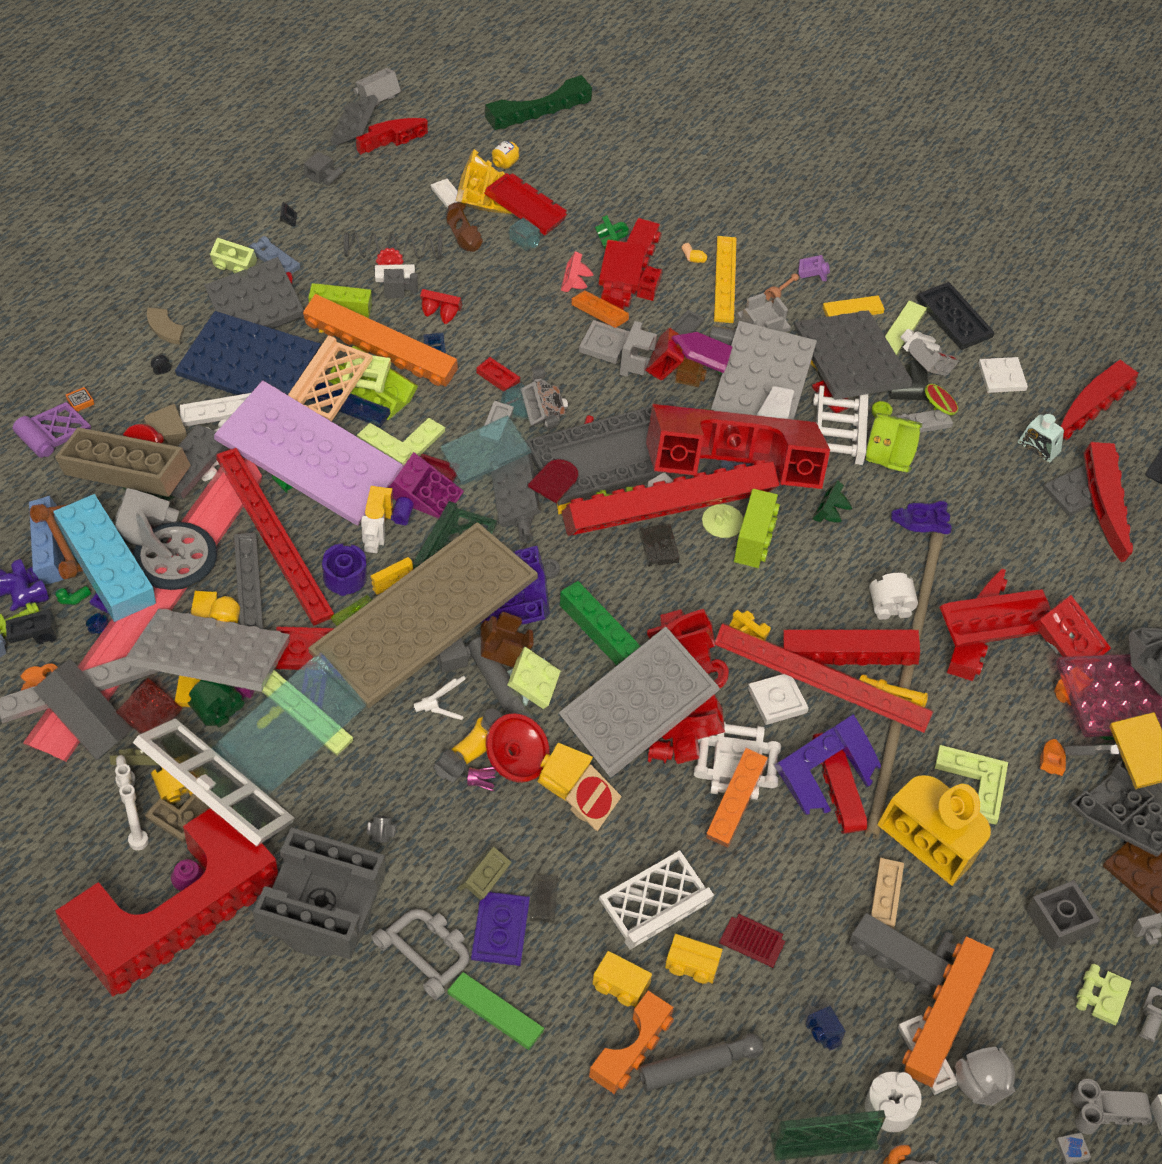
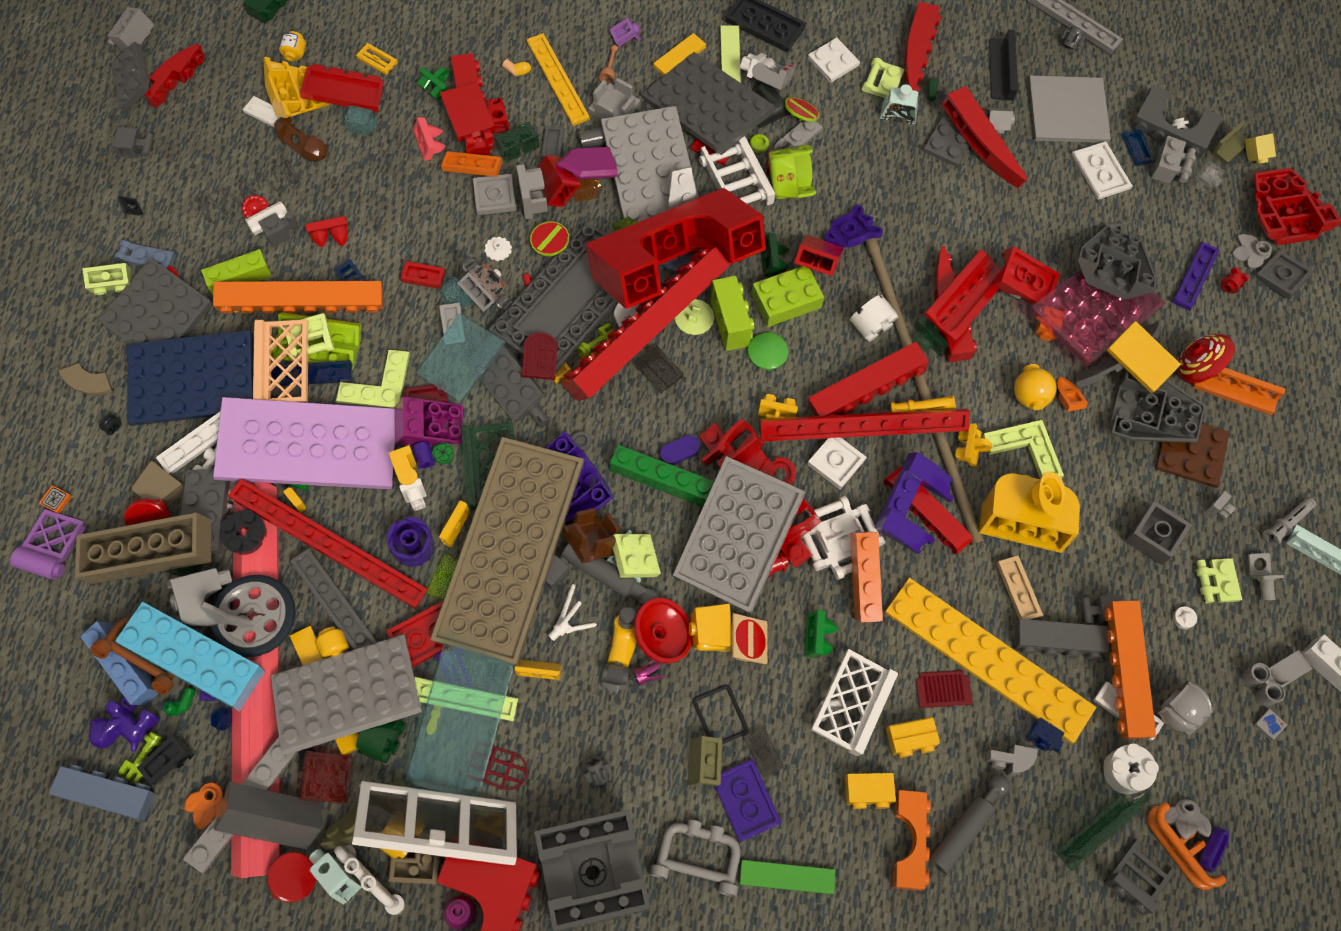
camera: 30 degrees left, 15 degrees up
(69, 768) = (290, 877): none -> red tile
(102, 777) = (333, 876): none -> light aqua torso
(210, 480) = (234, 523): none -> black plate
(270, 491) = (295, 500): none -> yellow tile
(300, 794) = (505, 775): none -> dark red window
(385, 726) = (538, 669): none -> yellow slope
(420, 519) = (443, 453): none -> tile
(544, 851) = (695, 699): none -> black piece
(579, 386) = (498, 248): none -> white piece
(585, 203) = (387, 67): none -> yellow tile
(630, 397) = (549, 238): none -> red piece
(635, 618) = (680, 450): none -> dark purple tile
(659, 304) = (508, 142): none -> clear green piece
(666, 821) = (816, 626): none -> green tile
(773, 579) = (768, 351): none -> bright green dish
(783, 1034) = (1018, 759): none -> light grey brick
(817, 940) = (990, 660): none -> yellow plate
(822, 541) = (787, 295): none -> lime brick
(873, 519) = (819, 255): none -> red brick
(921, 740) = (974, 445): none -> yellow hips
(938, 640) = (929, 337): none -> clear green tile
(1017, 729) = (1035, 387): none -> yellow brick
(1044, 1007) = (1185, 617): none -> white tile
(1052, 407) = (890, 78): none -> yellowish green plate
(1087, 437) = (932, 88): none -> dark green tile
(1138, 493) = (1001, 118): none -> light grey brick

